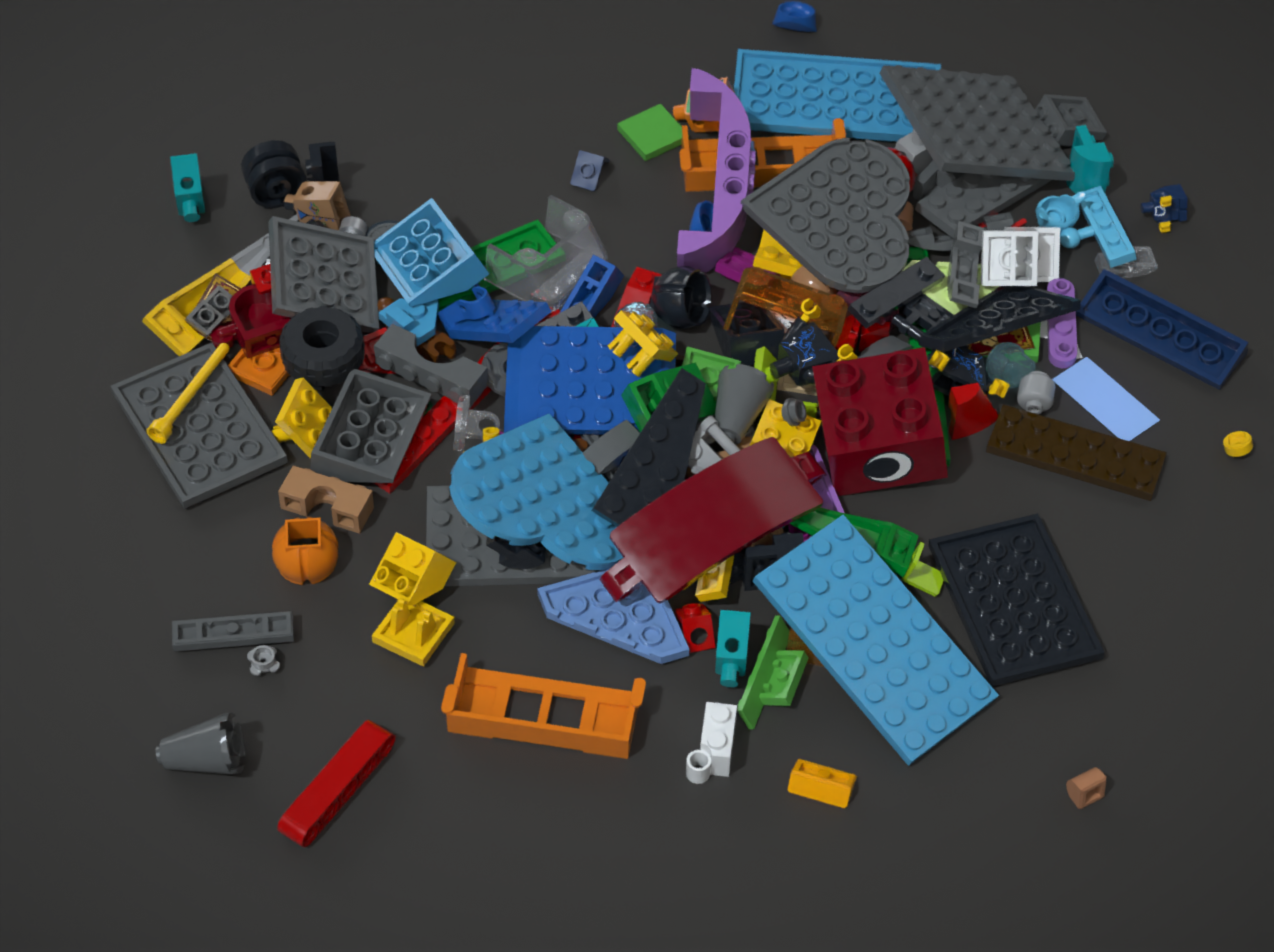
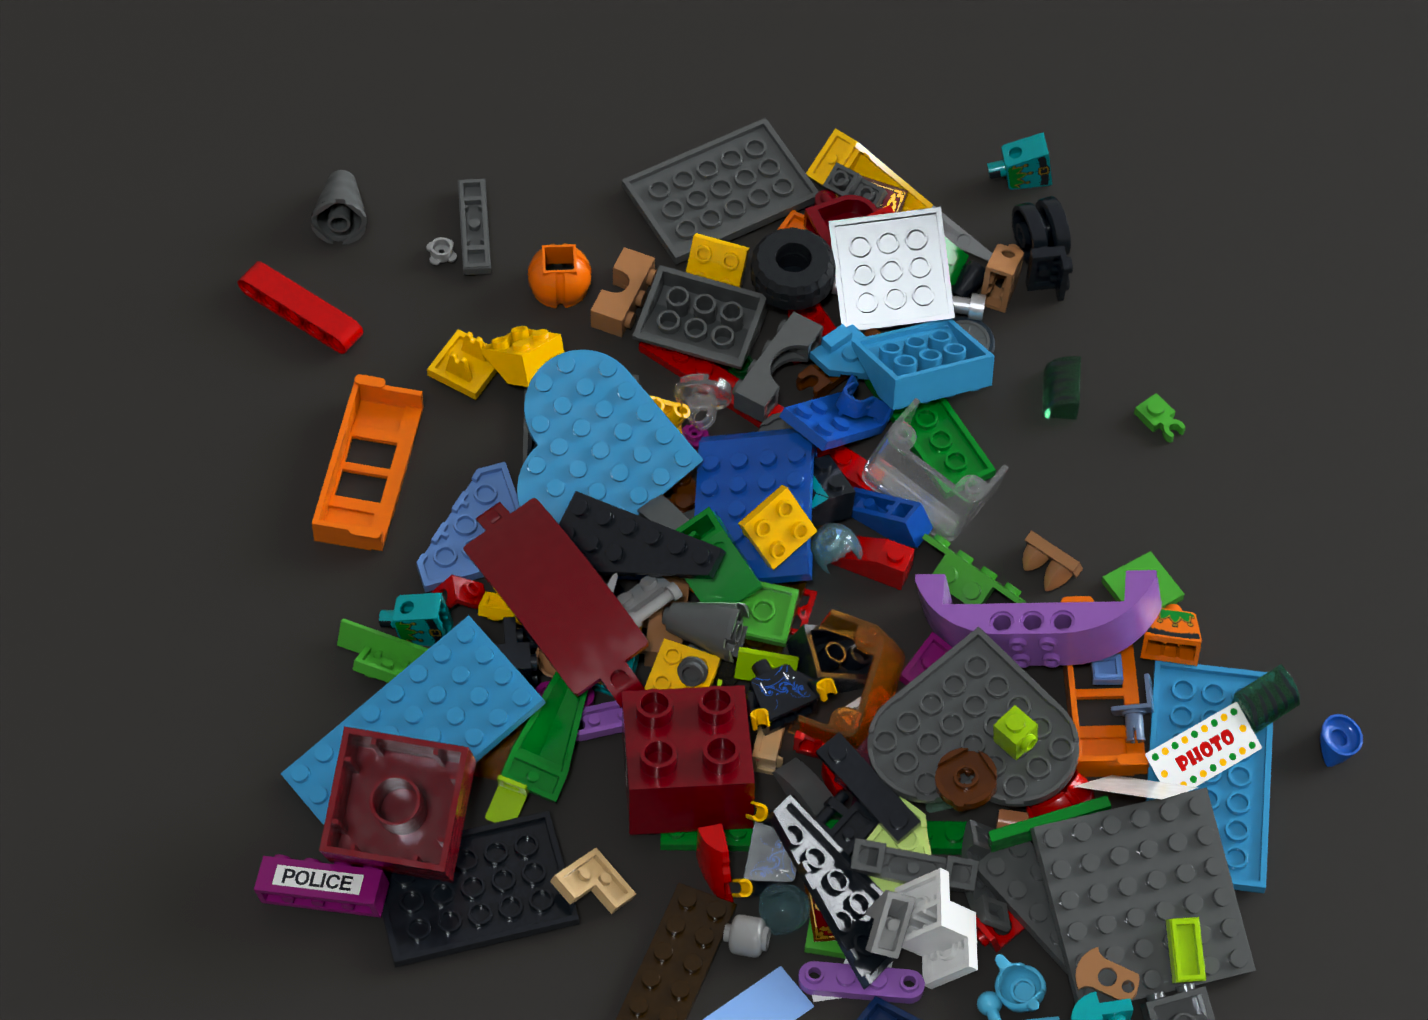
camera: 90 degrees right, 5 degrees up
(161, 428) = (704, 154): yellow piece -> none
(444, 174) = (1062, 388): none -> clear green brick
(471, 117) = (1159, 415): none -> bright green plate
(587, 170) = (1081, 519): dark blue bracket -> none
(638, 181) = (1059, 569): none -> medium nougat tile
(655, 245) = (966, 580): none -> bright green bracket
(682, 297) = (869, 604): black piece -> none
(715, 744) = (314, 603): white hinge -> none
(769, 51) = (1268, 698): none -> clear green brick
(788, 129) = (1134, 714): none -> sand blue bracket
(821, 783) = (270, 698): light orange slope -> none
(824, 89) = (1205, 748): none -> white sticker
(855, 170) = (1015, 732): none -> lime brick
(883, 110) = (1136, 787): none -> white sticker
(896, 224) = (964, 795): none -> reddish brown plate
(924, 168) = (1020, 832): none -> green tile
(979, 616) = (398, 804): none -> dark red brick
(1001, 502) = (597, 875): none -> tan plate
(1016, 101) = (1185, 950): none -> lime tile
(1022, 277) = (891, 920): none -> light grey slope
(1038, 711) = (321, 886): none -> magenta brick
(1058, 136) = (1092, 964): none -> medium nougat piece
(1087, 787) = (235, 928): nougat brick -> none

